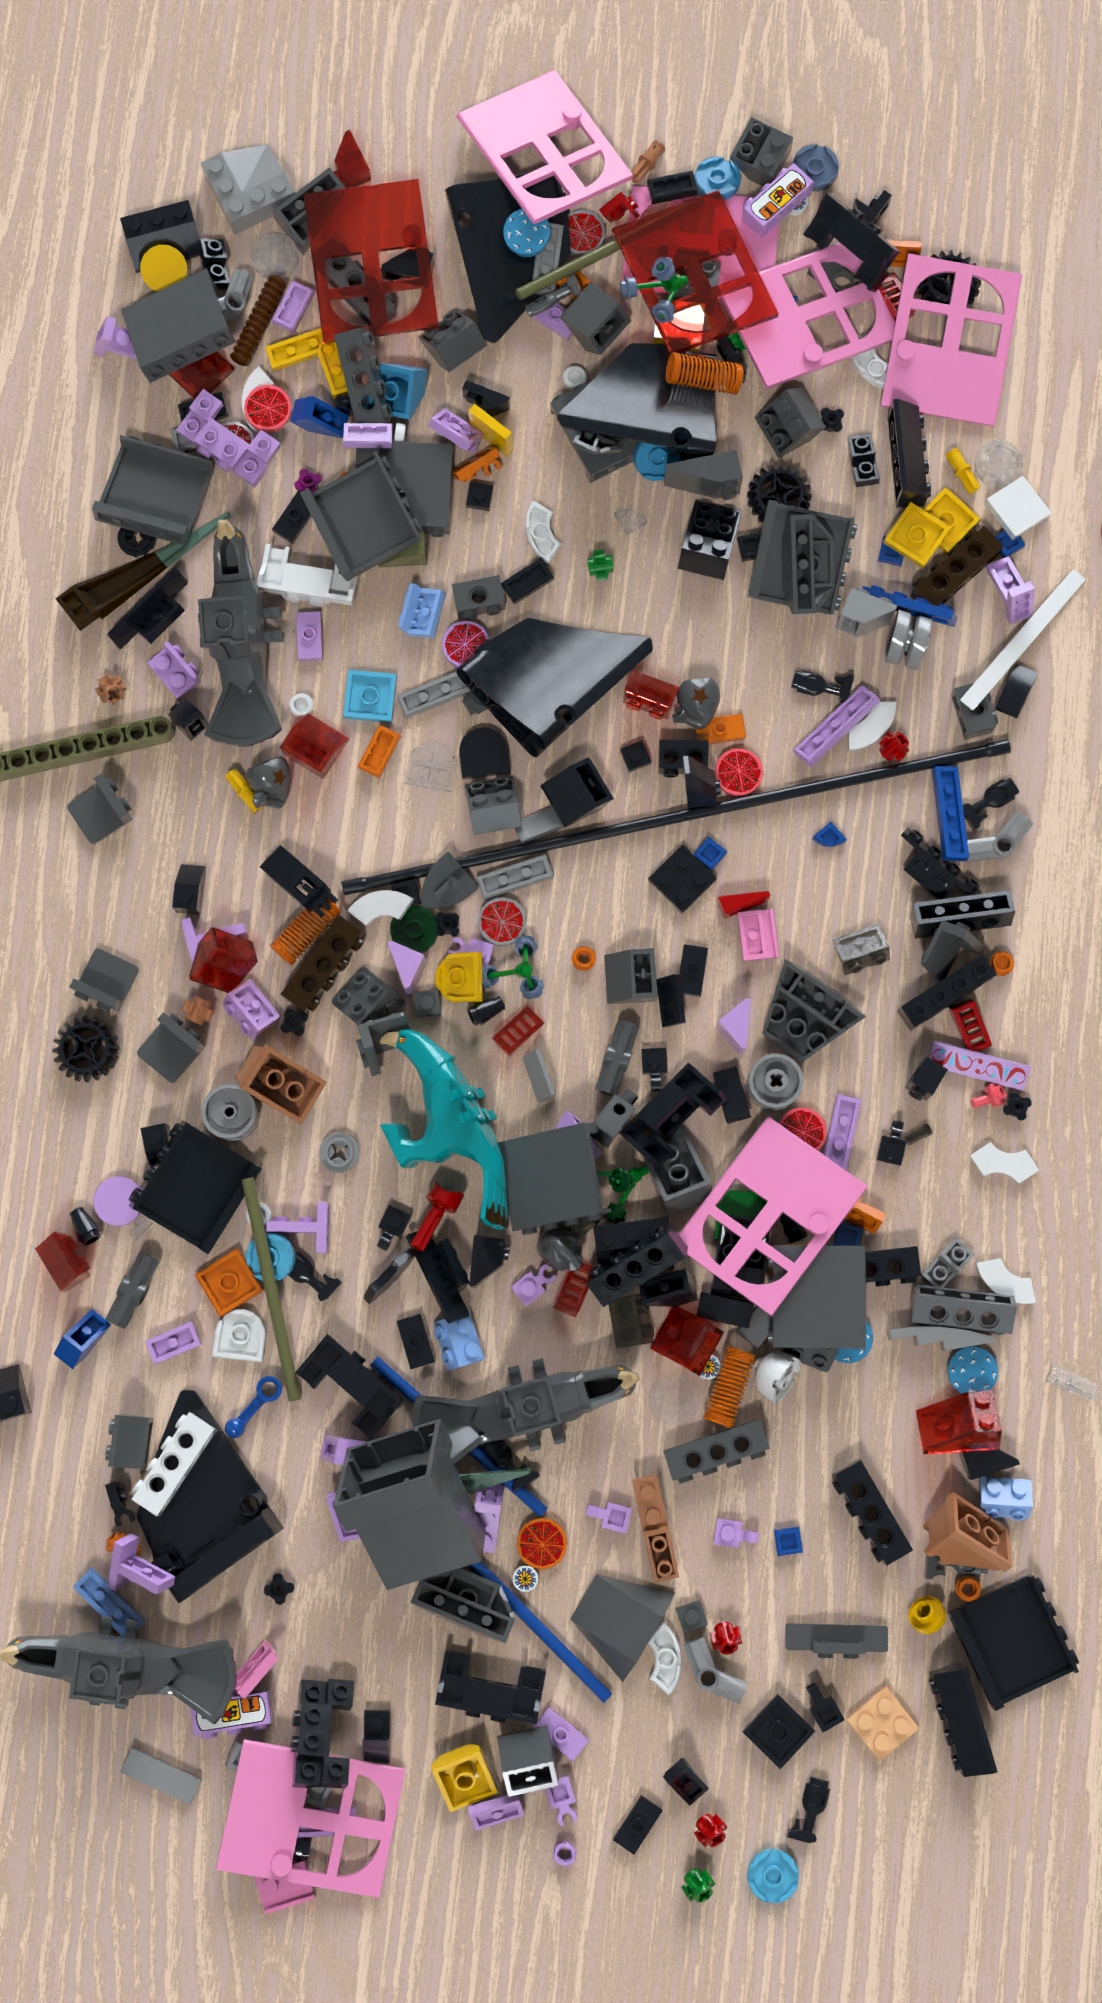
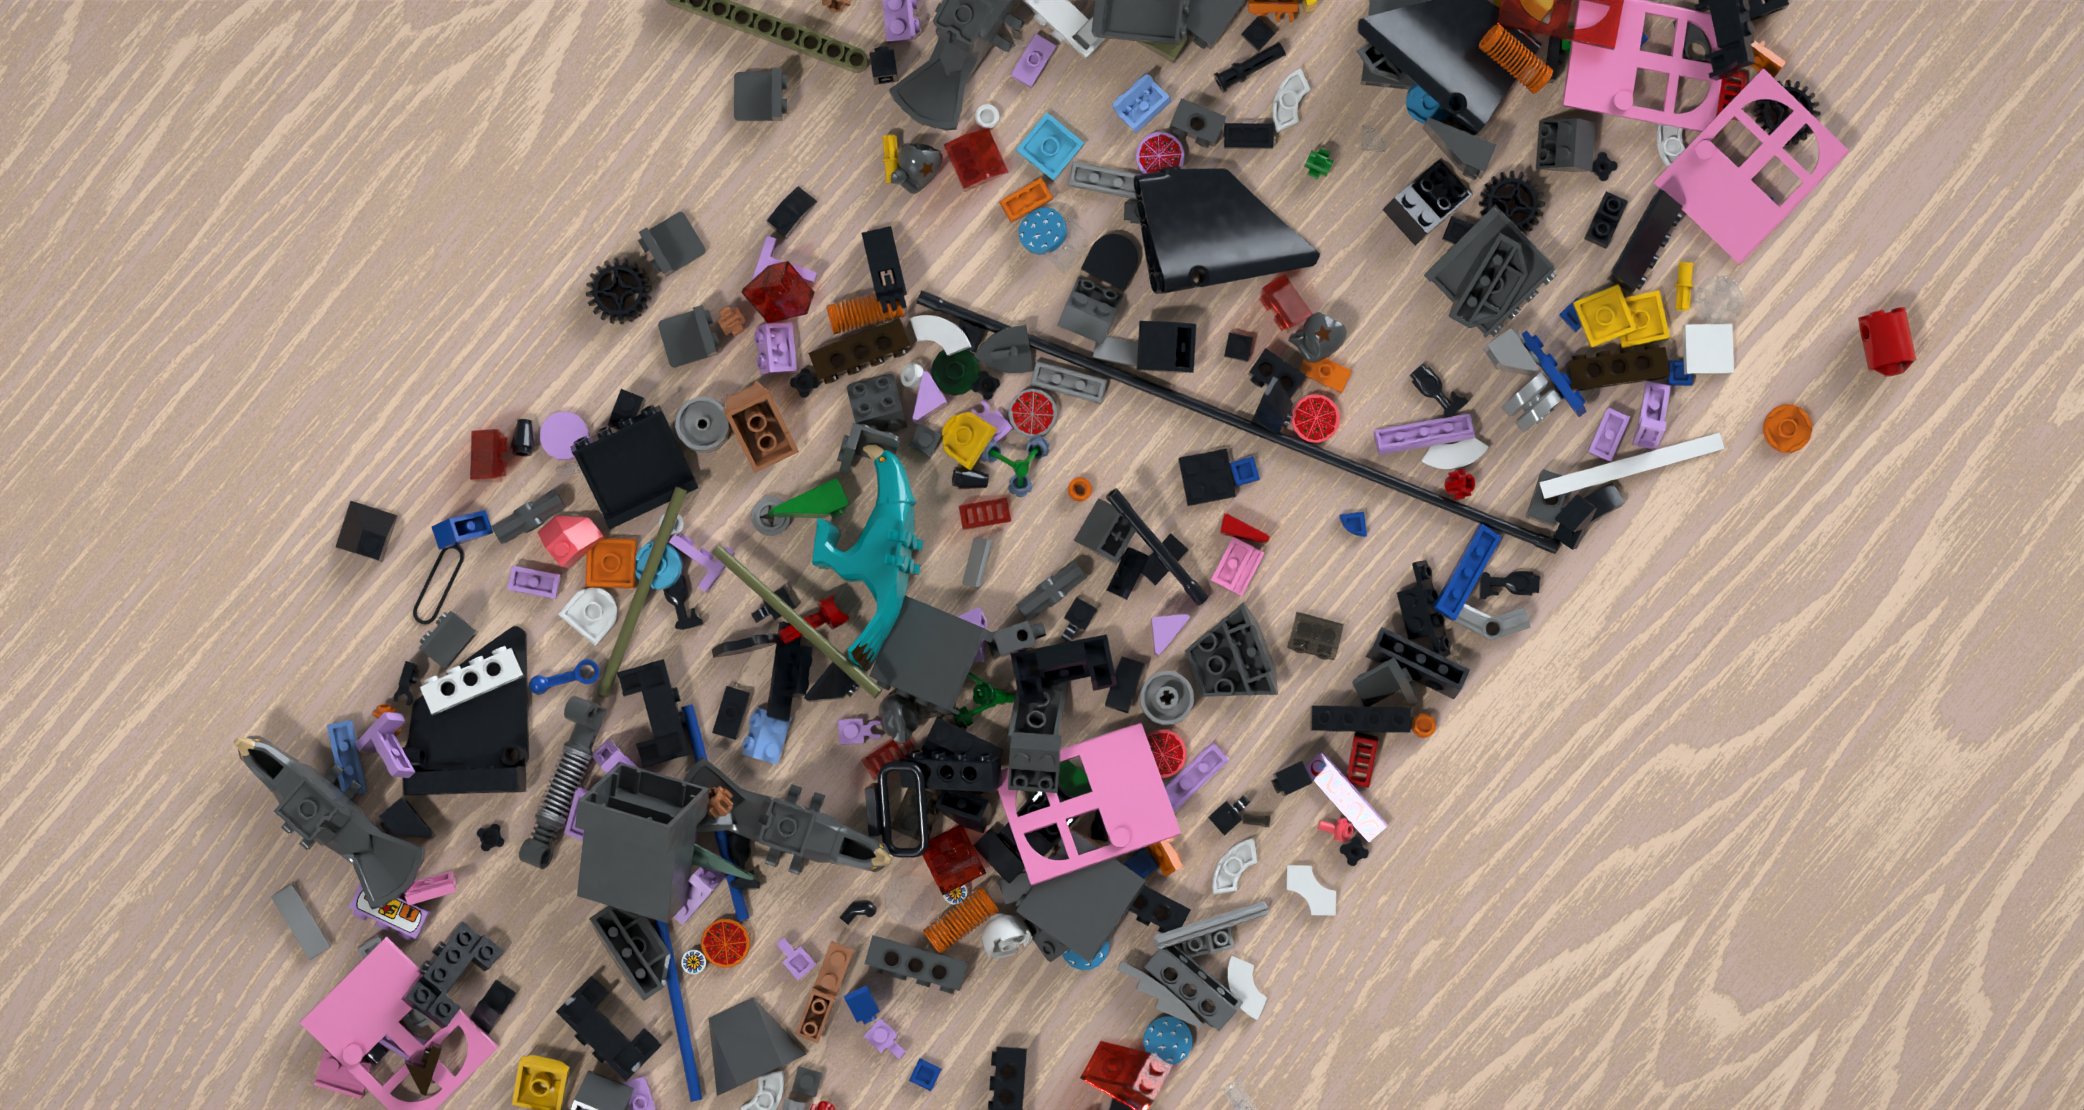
camera: 30 degrees right, 5 degrees up
(102, 1400) = (446, 590): none -> black piece
(179, 1284) = (569, 538): none -> coral slope
(195, 1624) = (404, 821): none -> black slope
(305, 1464) = (576, 751): none -> dark grey piece
(352, 1840) = (423, 1074): none -> dark brown slope
(371, 1113) = (816, 503): none -> green slope
(380, 956) = (911, 375): none -> white tile
(410, 766) = (1042, 231): none -> dark azure tile
(421, 1224) = (796, 621): none -> olive piece
(456, 1424) = (719, 802): none -> nougat gear
(485, 535) = (1239, 72): none -> black pin
(596, 1338) = (879, 812): none -> black bar
(634, 1436) = (859, 907): none -> black arm
(695, 1517) = (862, 1005): none -> blue slope
(703, 1209) = (1034, 762): none -> dark grey slope
(728, 975) = (1124, 508): none -> black piece
(924, 1187) = (1232, 865): none -> white tile
(942, 1248) = (1210, 925): none -> light grey axle
(986, 628) = (1608, 434): none -> lavender plate
(1009, 714) = (1574, 521): none -> black slope

